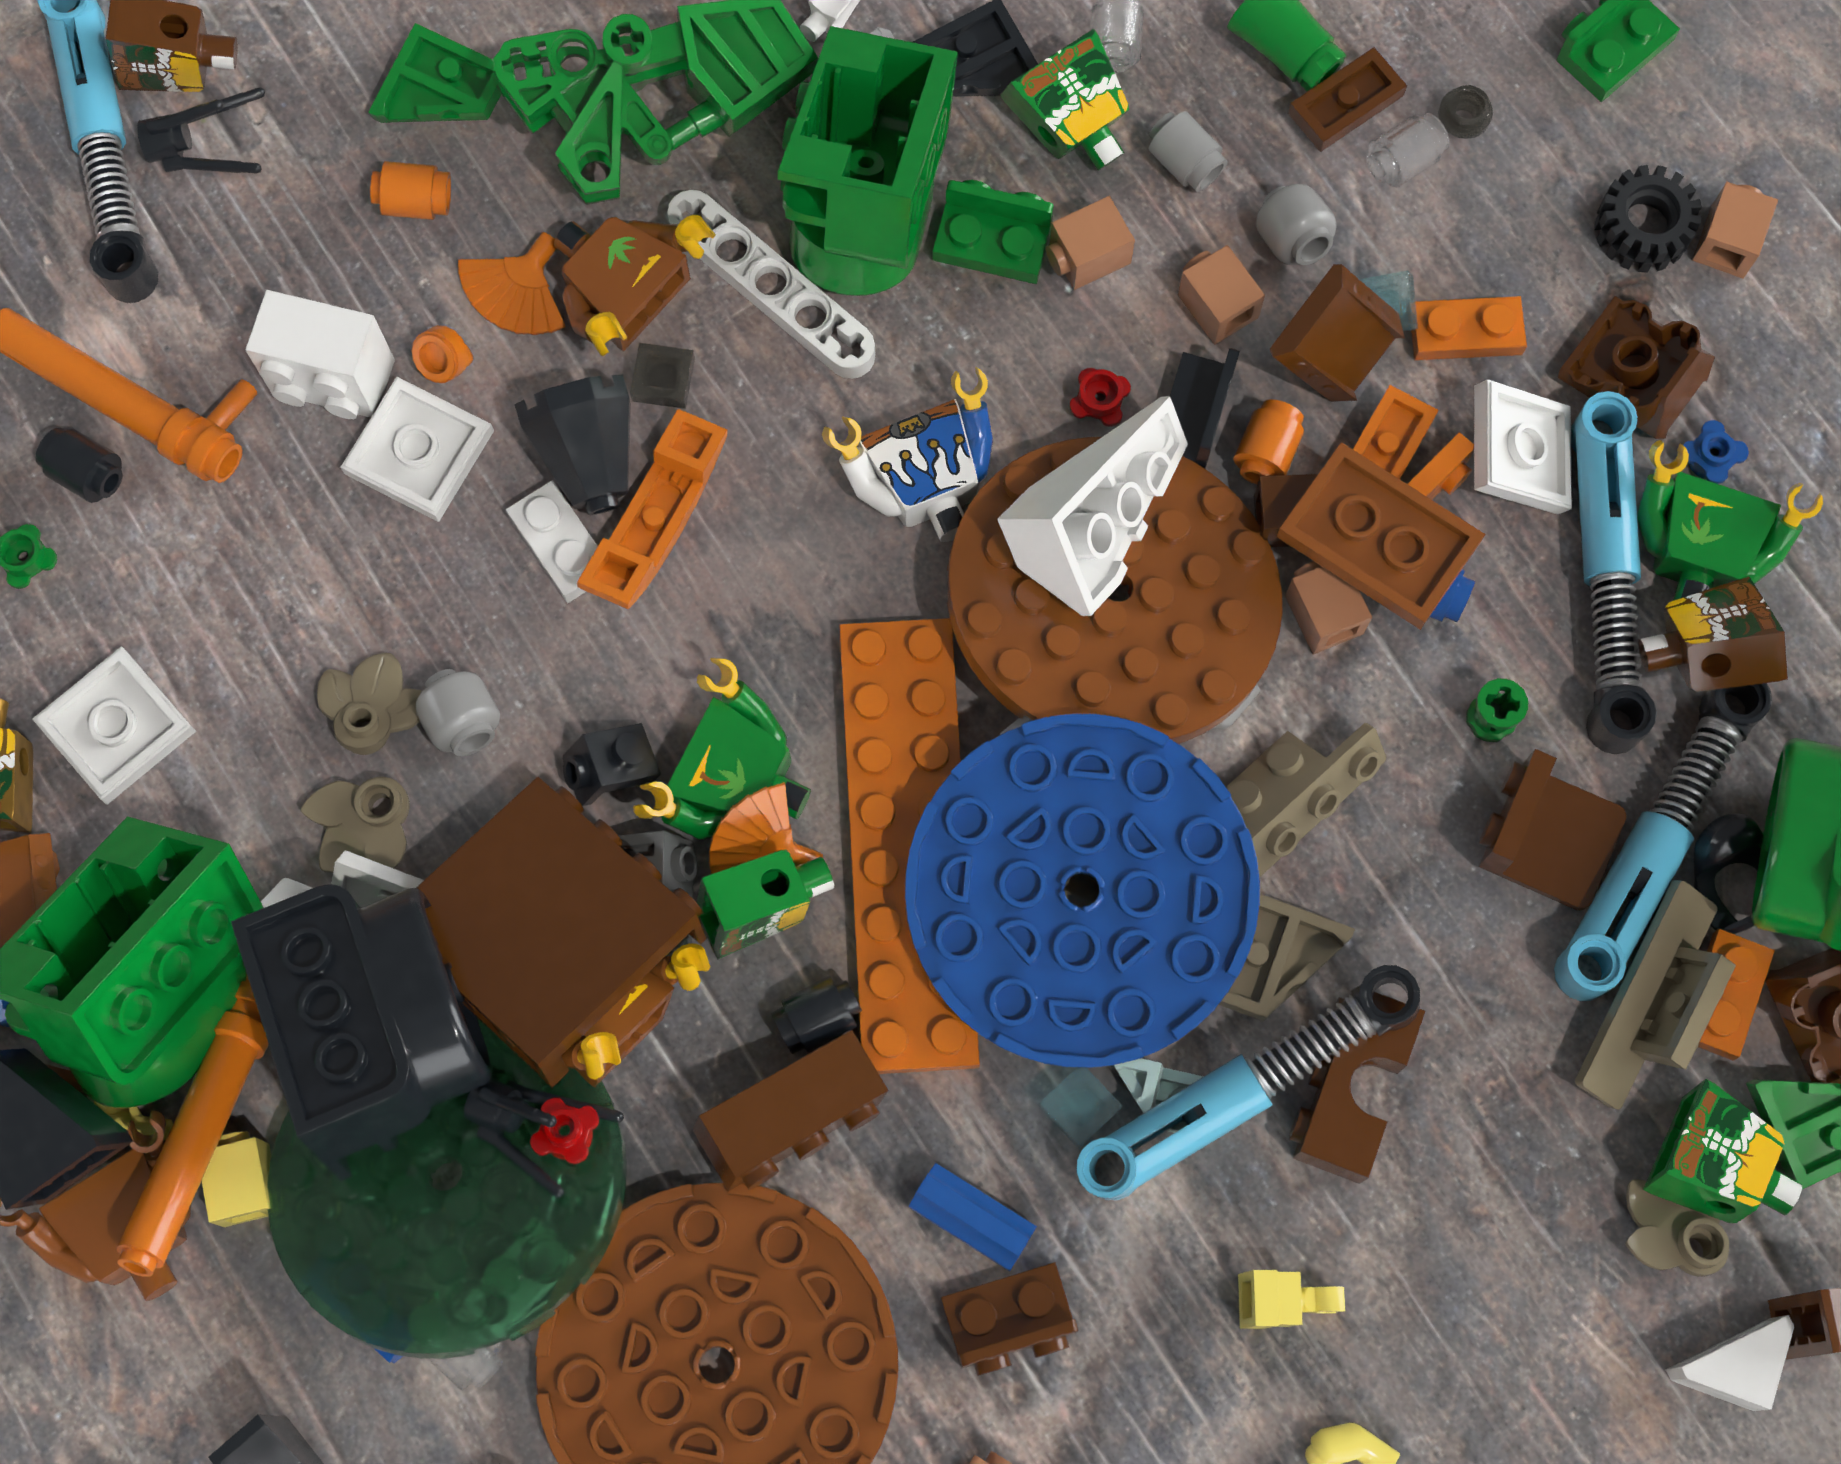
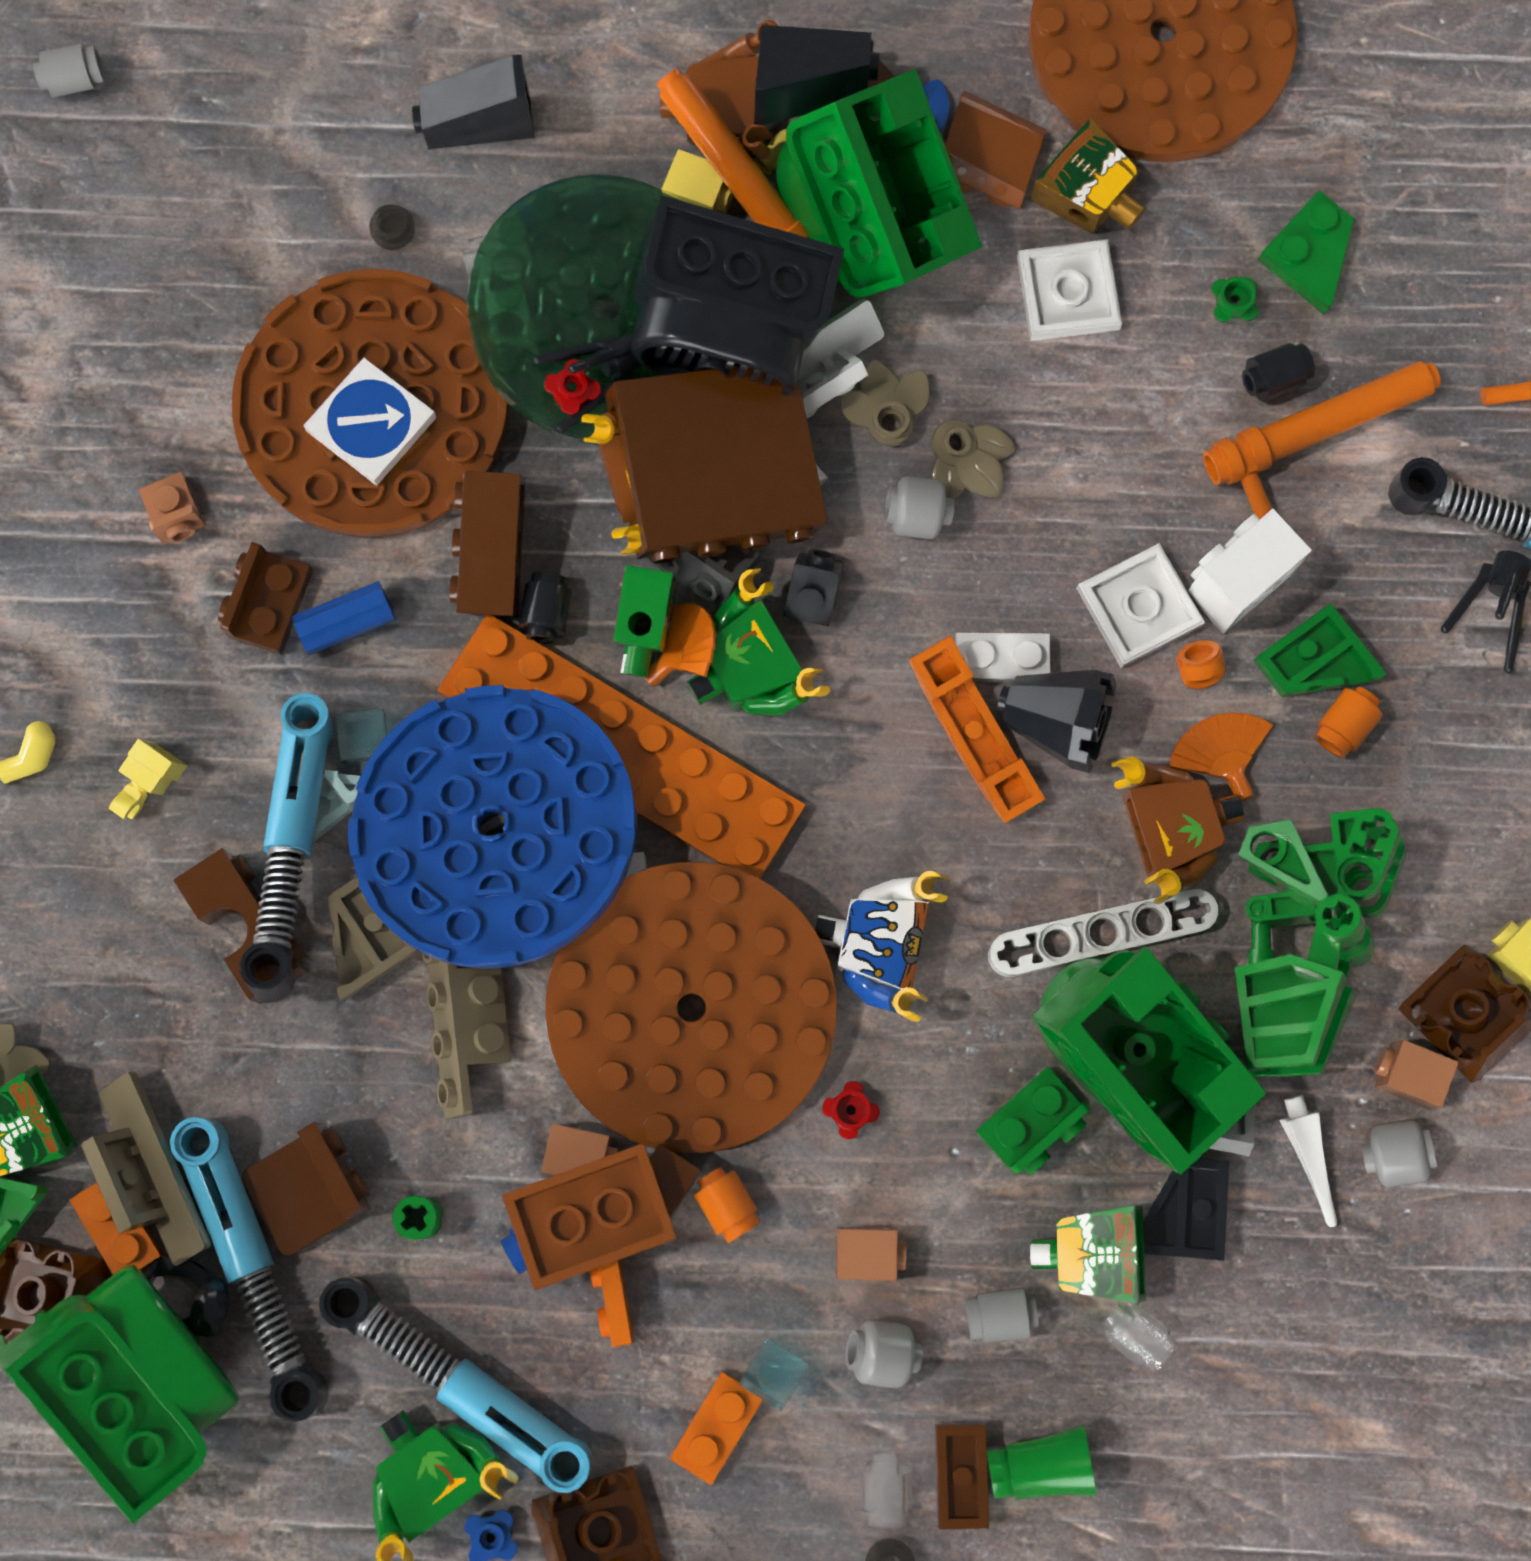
camera: 125 degrees right, 5 degrees up
(362, 256) = (1318, 657): none -> green wing
(436, 82) = (1433, 796): green wing -> none
(662, 375) = (1079, 805): clear smoke plate -> none
(742, 1340) = (370, 421): none -> tile
(1086, 513) = (752, 1011): white wedge -> none
(1090, 243) = (974, 1184): nougat brick -> none
(1199, 400) = (793, 1171): black panel -> none
(1337, 335) = (766, 1310): reddish brown slope -> none
(1395, 431) = (666, 1293): orange plate -> none
(1522, 447) = (591, 1387): white tile -> none
(1719, 639) = (345, 1410): reddish brown torso -> none

